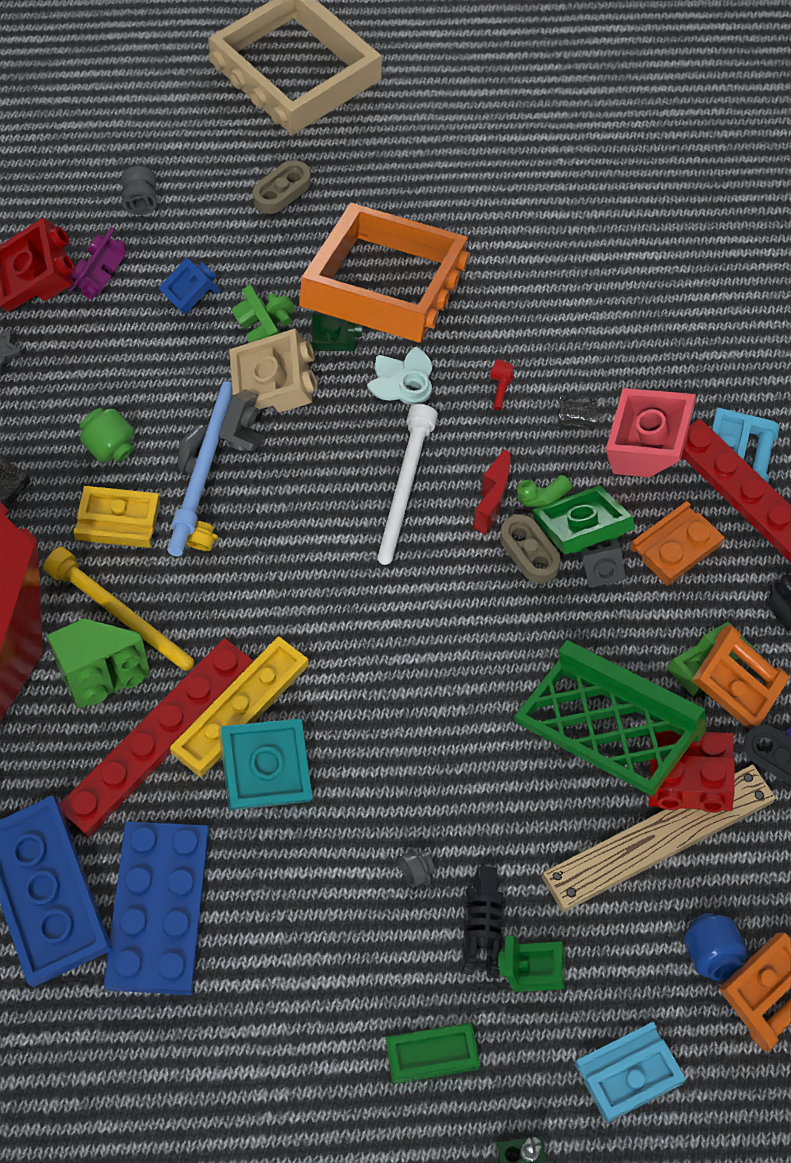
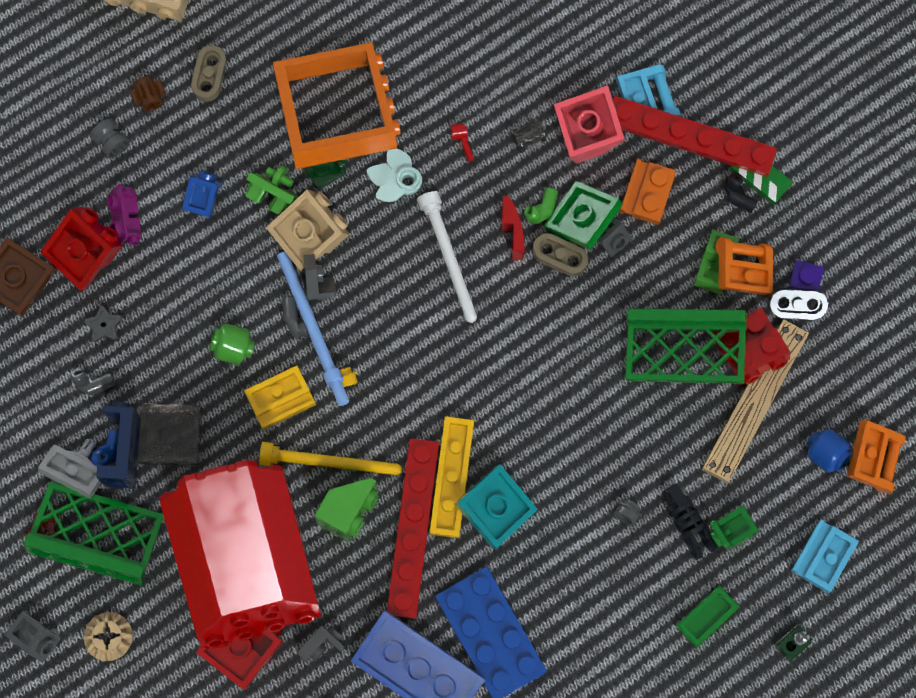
camera: 35 degrees left, 15 degrees up
(206, 171) = (148, 93): none -> reddish brown gear

